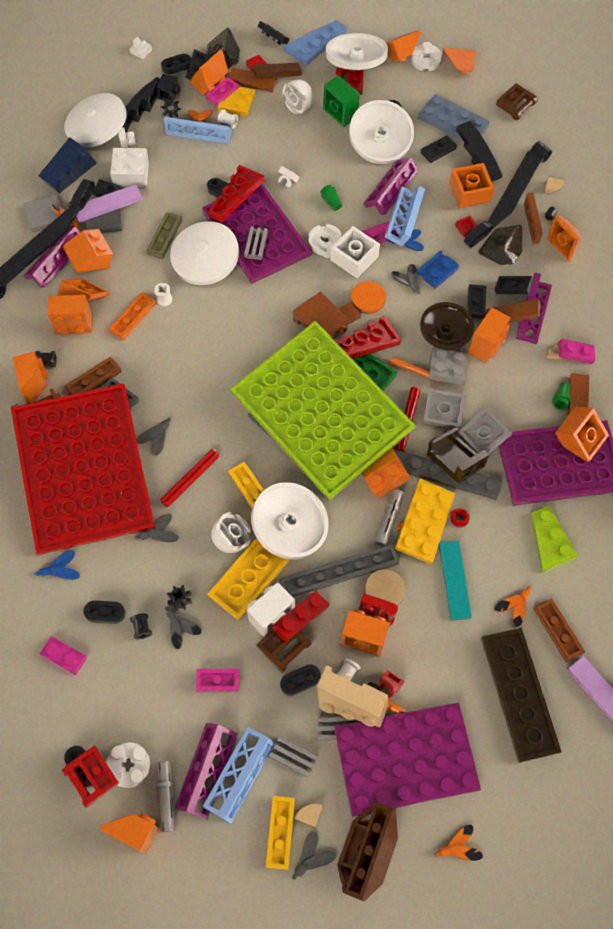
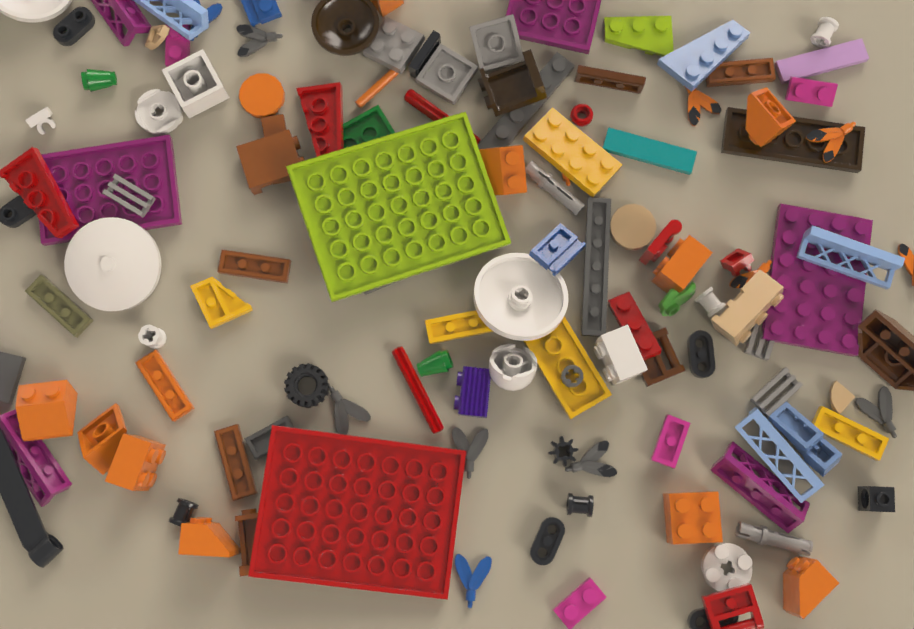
camera: 65 degrees left, 15 degrees up
(159, 718) = (692, 517): none -> orange brick
(164, 392) = (306, 371): none -> black tyre
(200, 516) = (474, 392): none -> dark purple brick
(203, 325) = (218, 302): none -> yellow wing
(214, 482) = (435, 364): none -> green cone
(229, 875) = (876, 499): none -> black brick
(240, 339) = (254, 266): none -> dark orange tile
(243, 574) = (576, 370): none -> dark grey bush
(260, 793) = (806, 438): none -> medium blue slope
(332, 640) = (673, 300): none -> bright green plate
(339, 535) = (557, 249): none -> plate
(363, 171) = (75, 27): none -> black plate
(378, 218) = (156, 36): none -> tan tile
(442, 774) = (851, 248): none -> light blue fence
(452, 386) = (424, 54): none -> black tile
(498, 527) = (610, 79): none -> reddish brown tile
(525, 657) = (766, 117): none -> orange slope
(538, 726) = (836, 137): none -> orange piece
(554, 591) = (703, 55): none -> wing
(571, 694) = (811, 91): none -> dark pink plate

